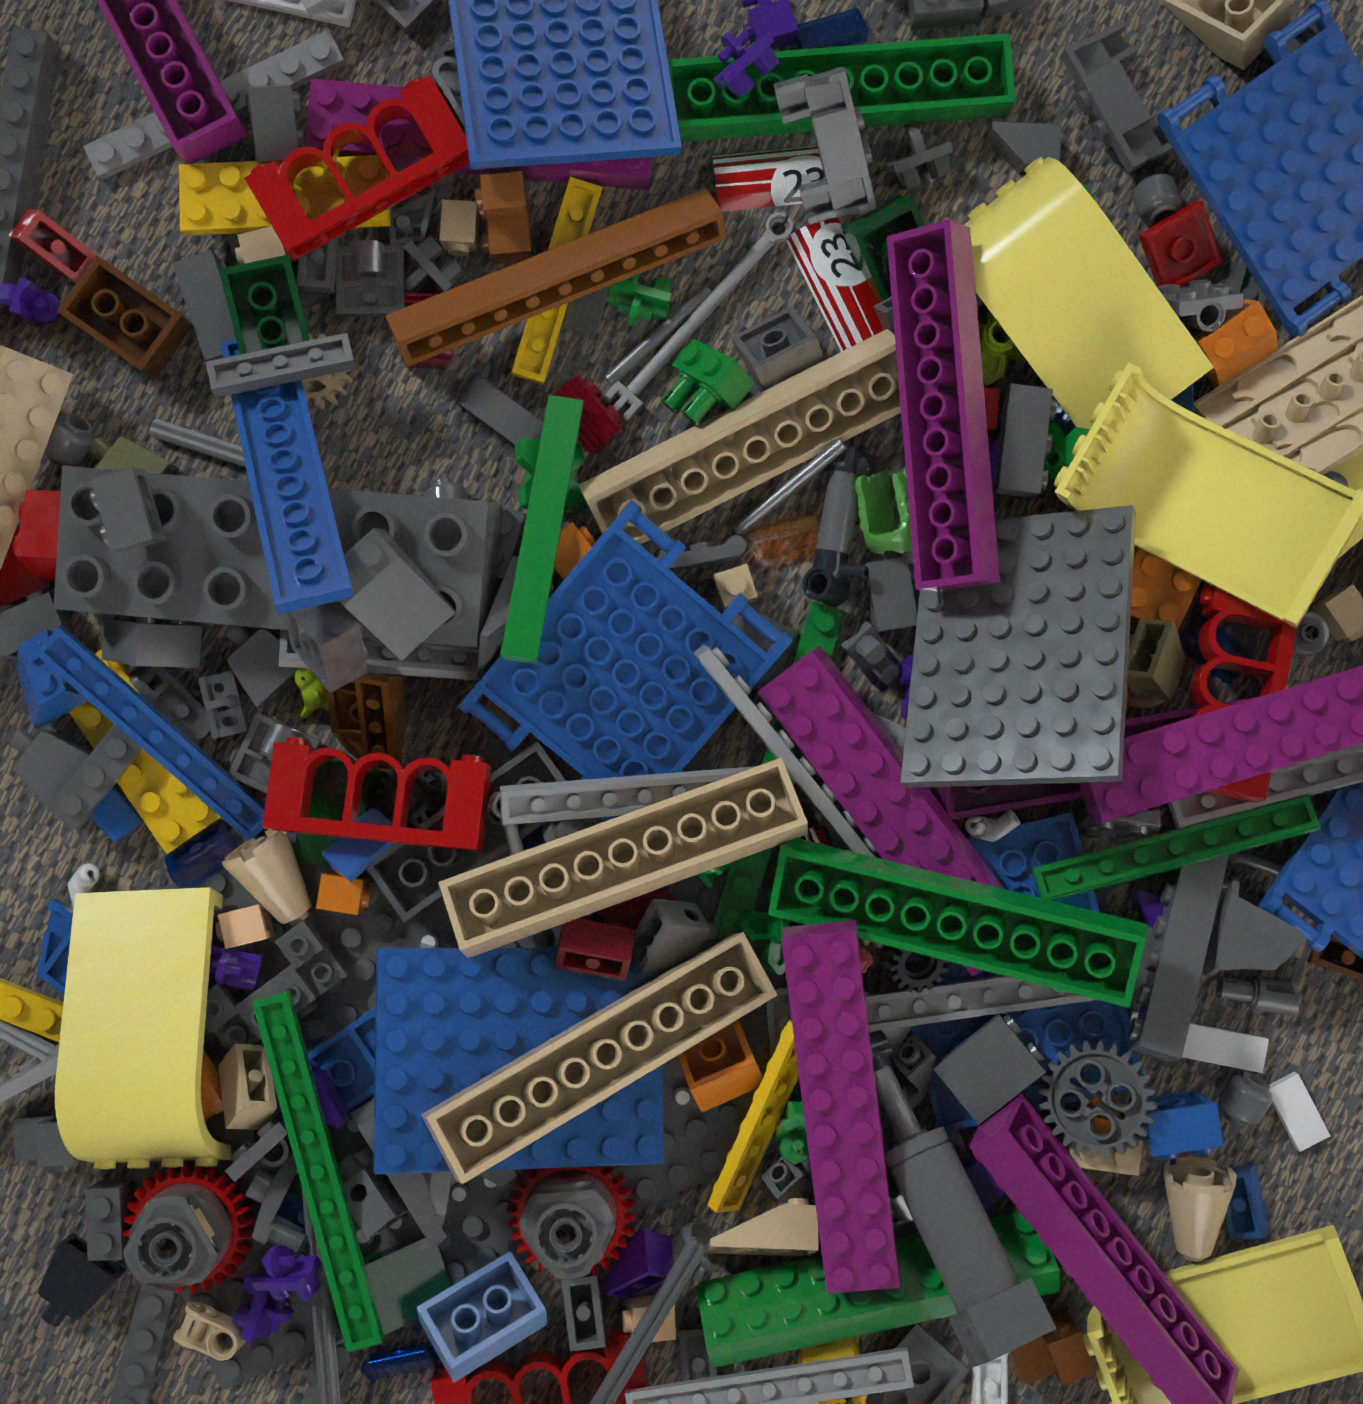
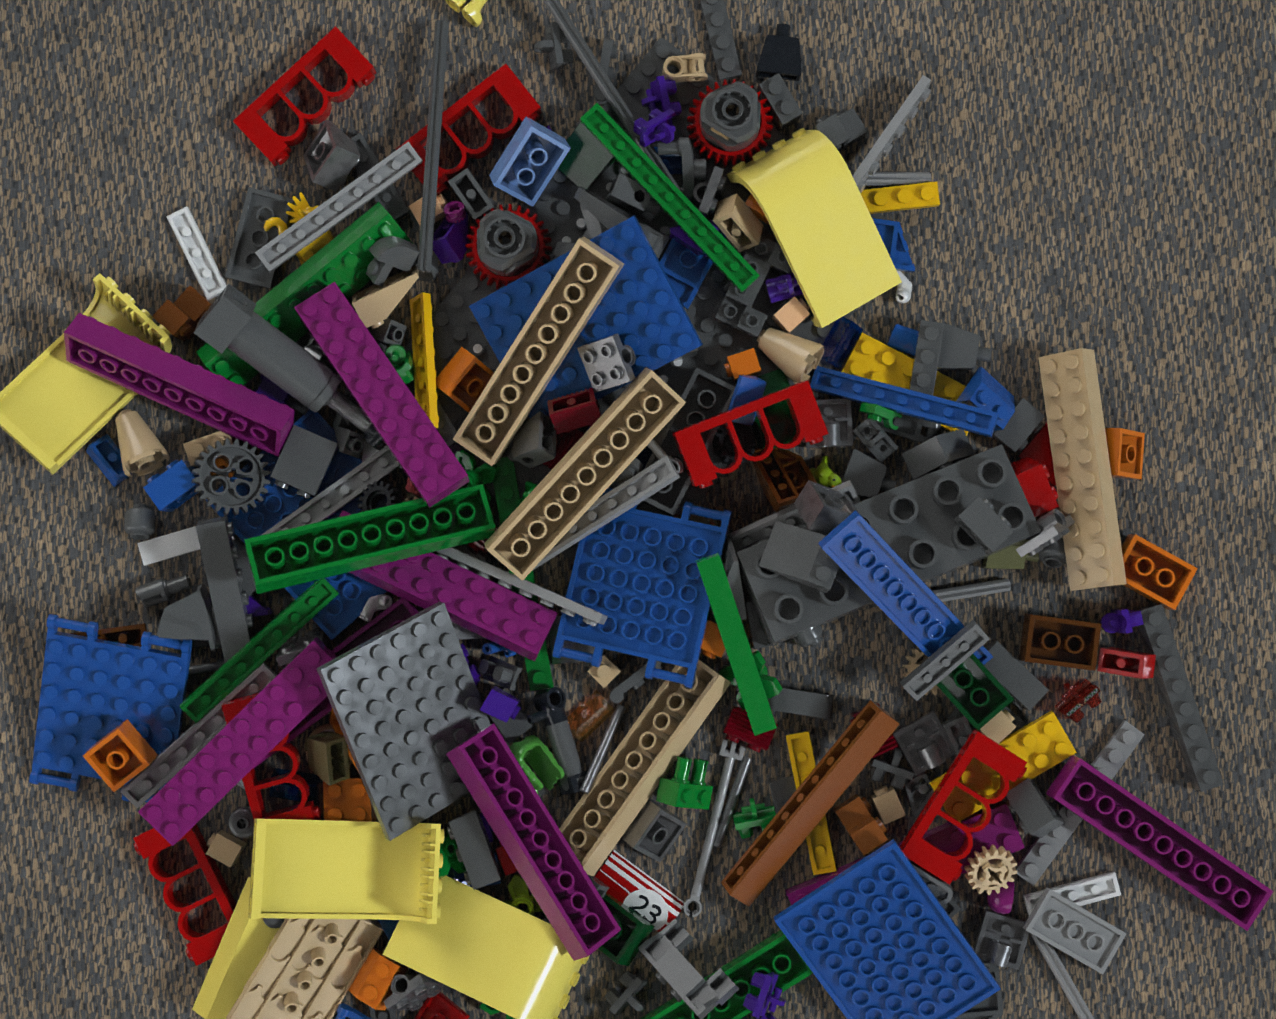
camera: 155 degrees right, 0 degrees up
(44, 463) = (1052, 527): none -> flat silver plate
(143, 236) = (1076, 697): none -> clear red hips
(197, 734) = (878, 413): none -> green plate
(368, 70) = (990, 869): none -> tan gear
(374, 36) = (1003, 901): none -> magenta hair
(399, 1361) = (564, 107): clear blue slope -> none
(515, 990) = (607, 362): none -> flat silver plate
(617, 1299) = (454, 211): none -> magenta bush
(735, 1291) = (390, 253): none -> dark grey brick
(765, 177) = (717, 934): sticker -> none
(866, 692) = (492, 647): none -> blue arm
(893, 610) = (501, 705): none -> dark purple slope
(1297, 1112) = (104, 530): white tile -> none

